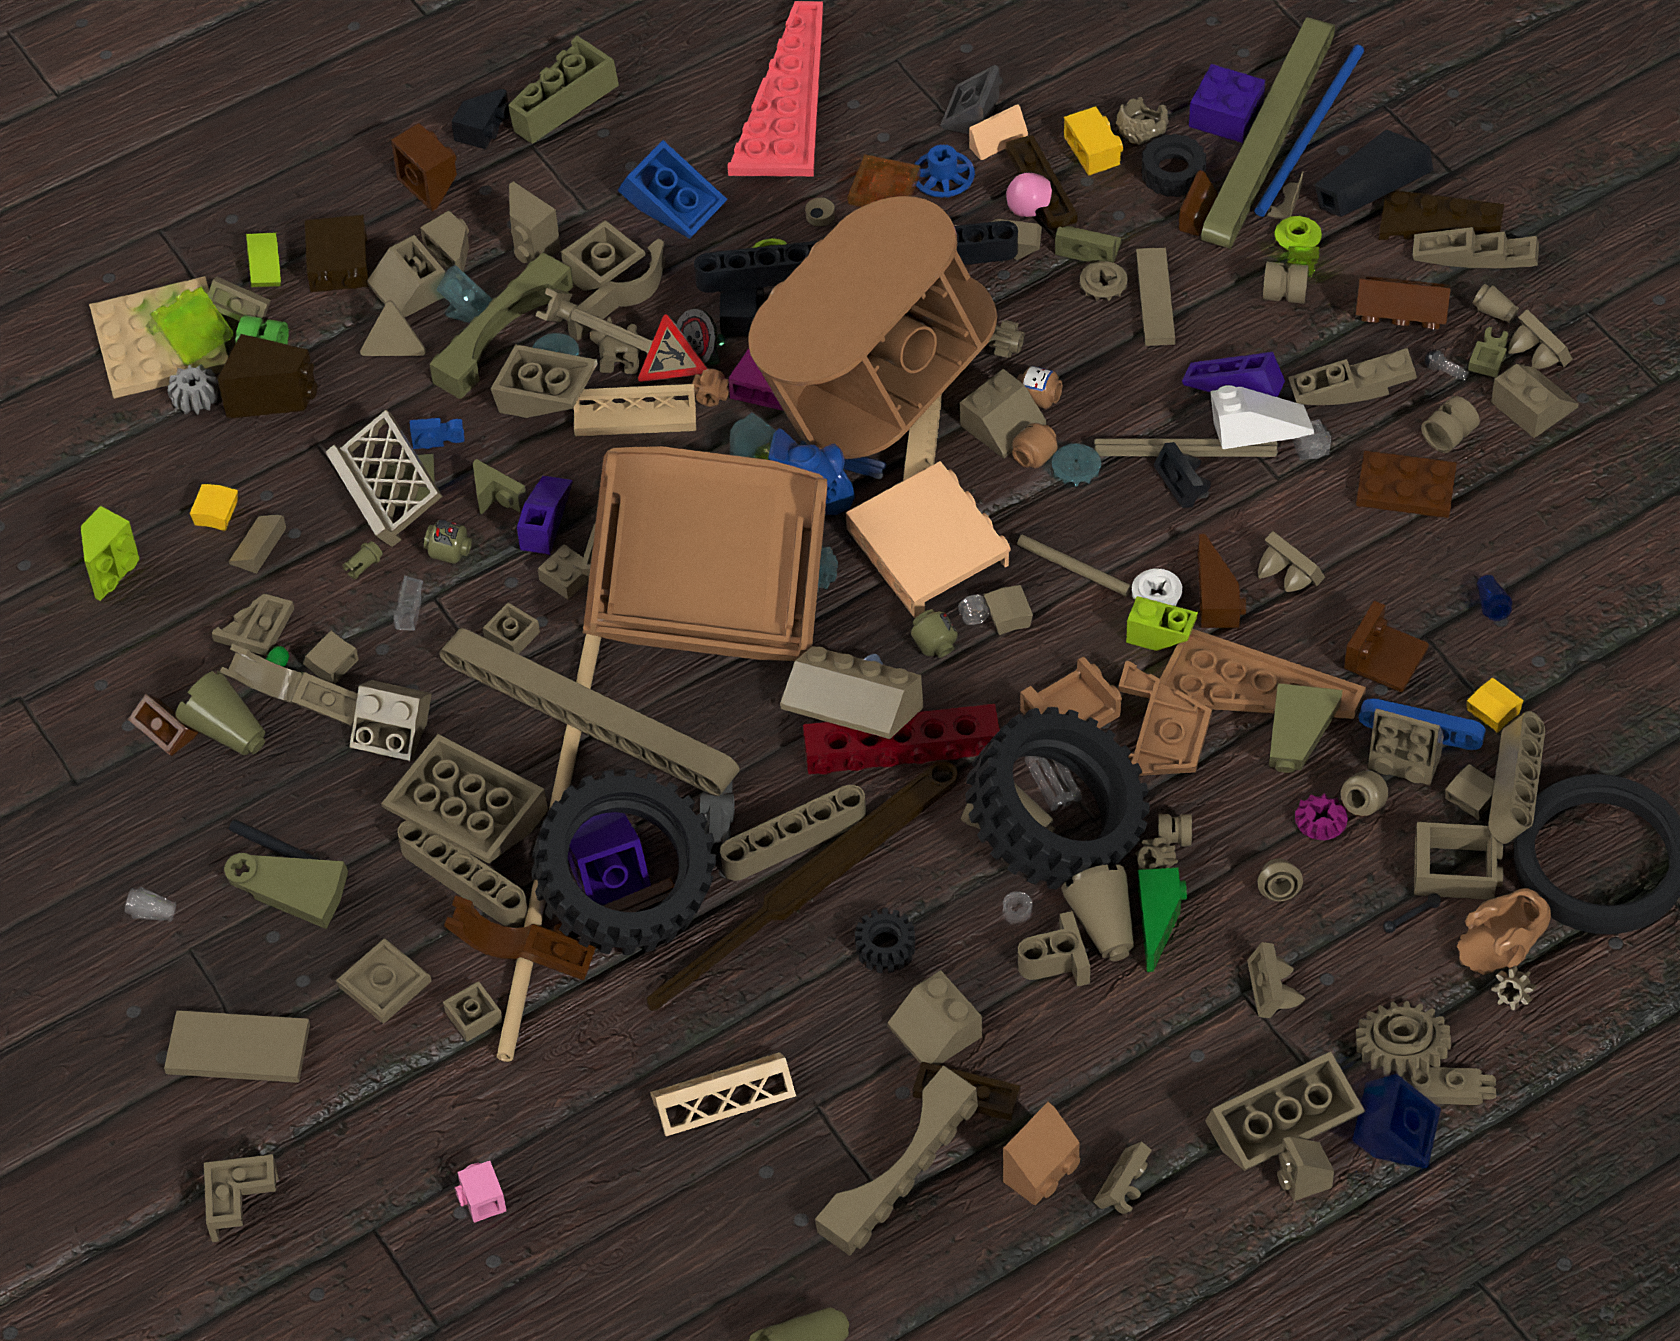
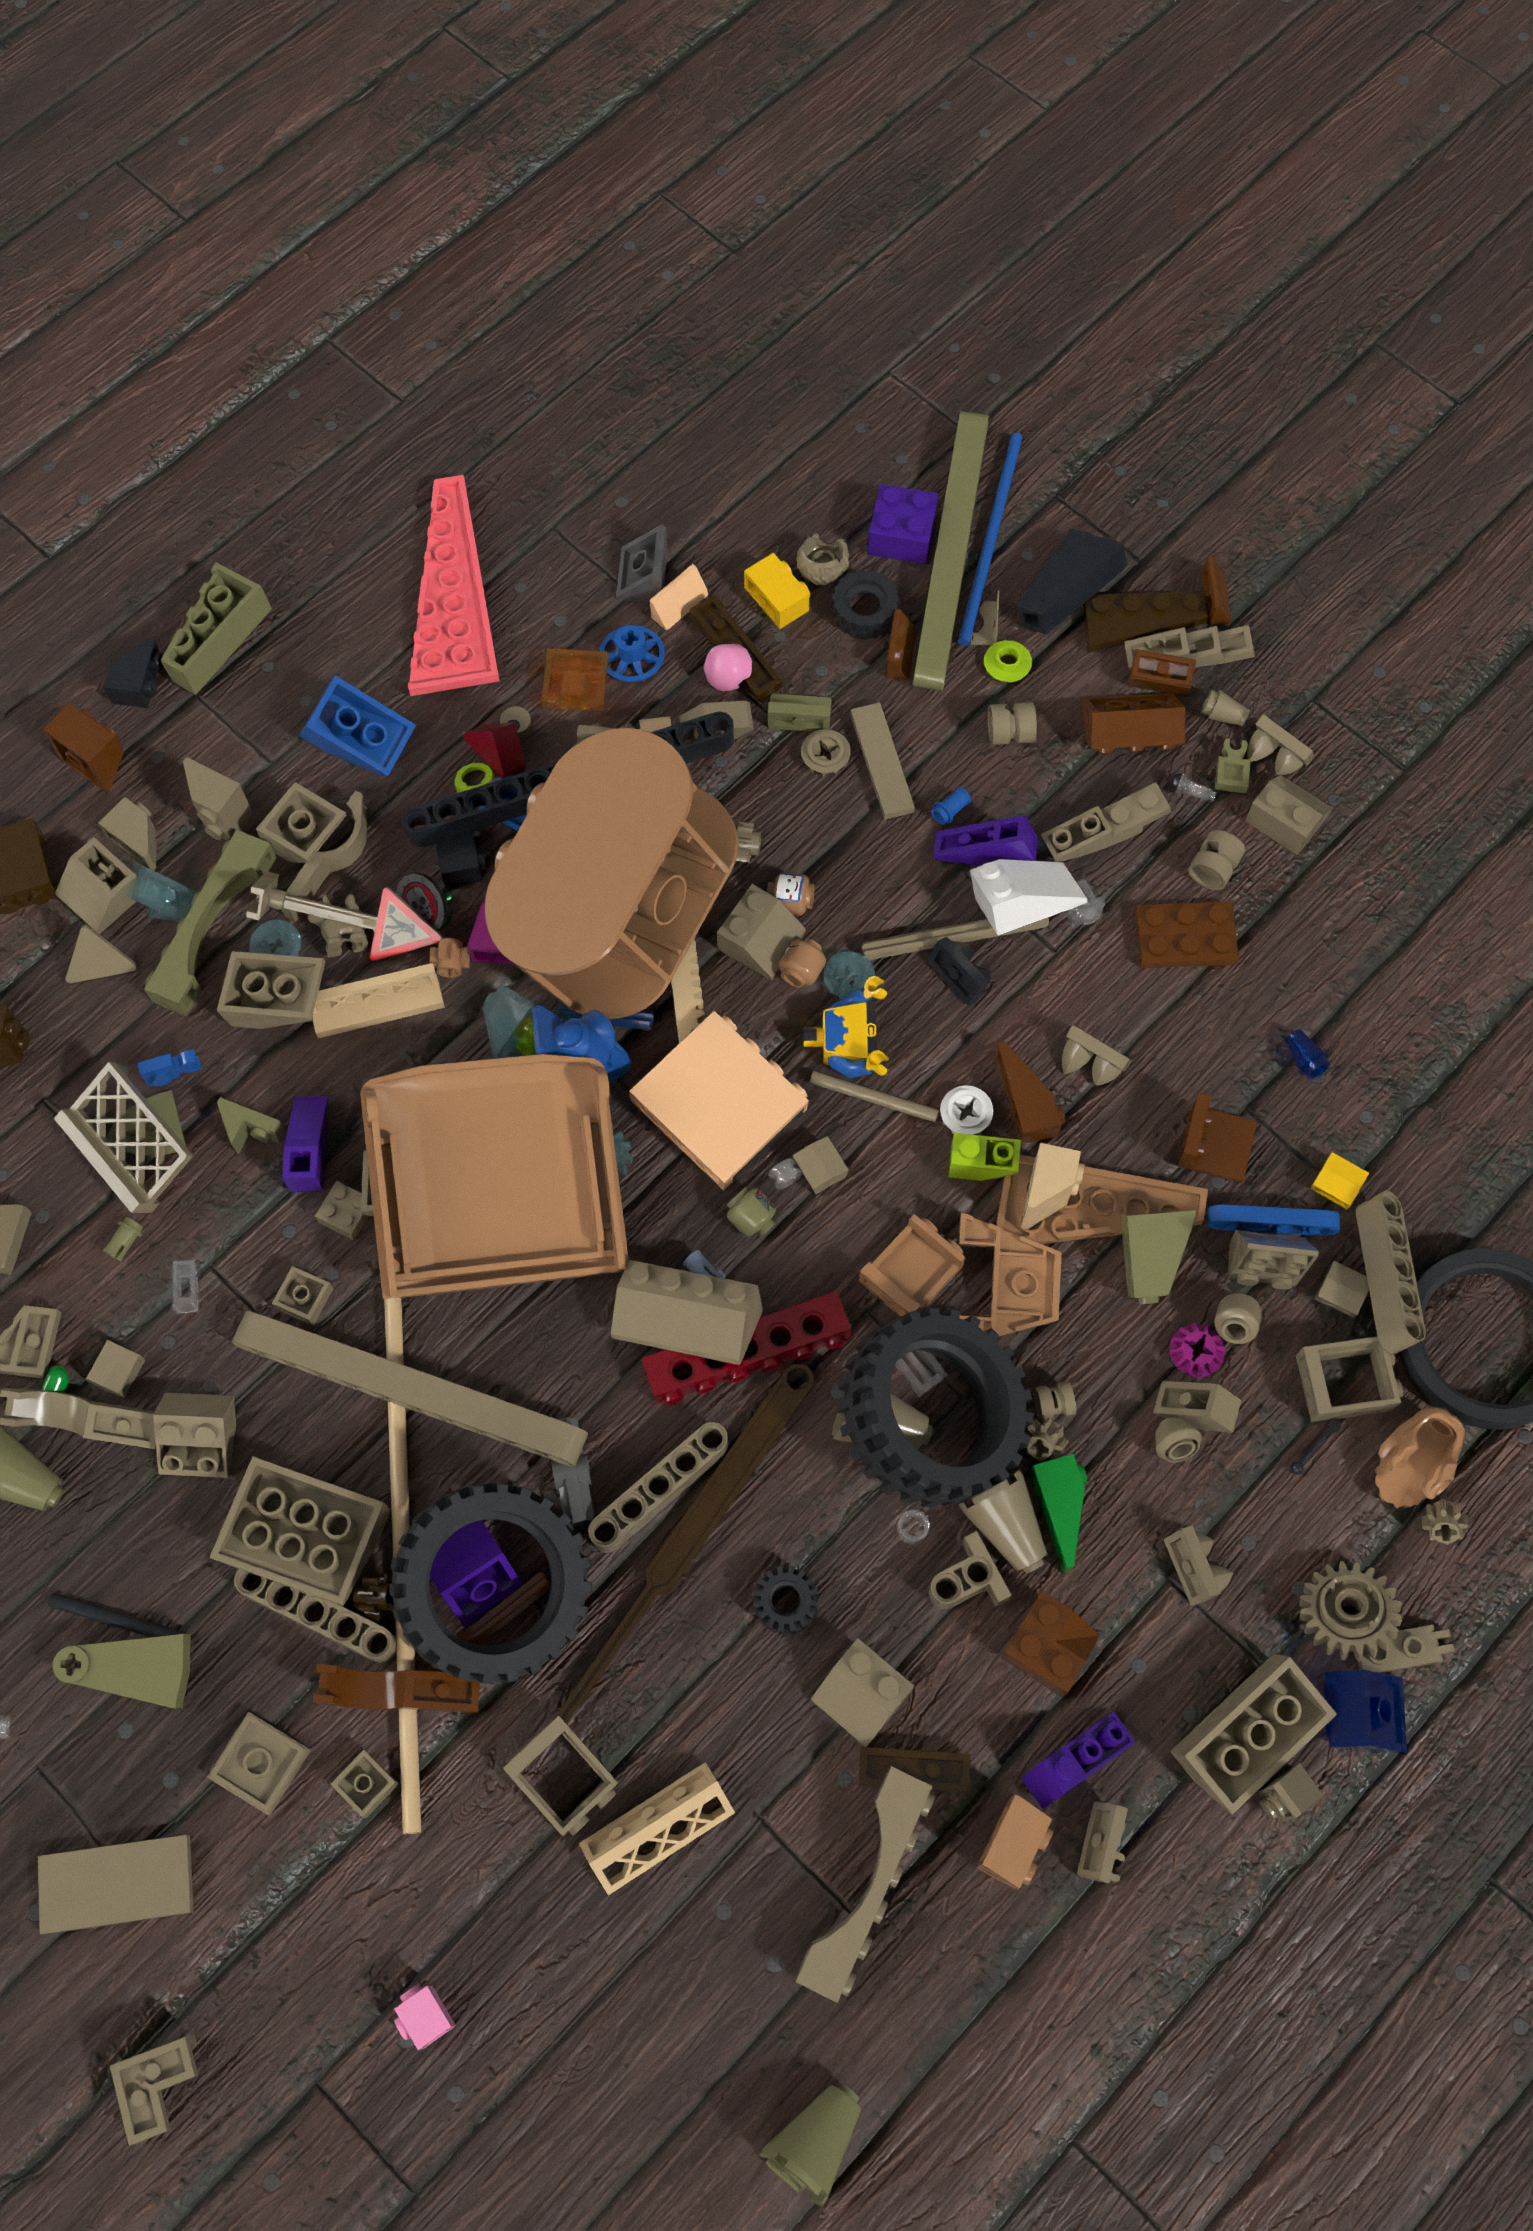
camera: 15 degrees left, 15 degrees up
(447, 541) = (210, 1201): olive head -> none
(517, 866) = (373, 1596): none -> dark brown gear
(633, 1003) = (537, 1745): none -> dark tan window
(797, 223) = (498, 747): none -> dark red slope
(1064, 505) = (850, 1033): none -> torso
(1115, 1110) = (1077, 1760): none -> dark purple slope
(1117, 1016) = (1051, 1644): none -> reddish brown slope
(1203, 345) = (951, 805): none -> blue pin
(1213, 647) = (1052, 1181): none -> tan slope
(1303, 256) = (1021, 689): clear neon green tile -> none
(1313, 854) = (1200, 1404): none -> dark tan slope
(1441, 264) = (1161, 672): none -> reddish brown slope
(1516, 207) = (1216, 593): none -> reddish brown slope

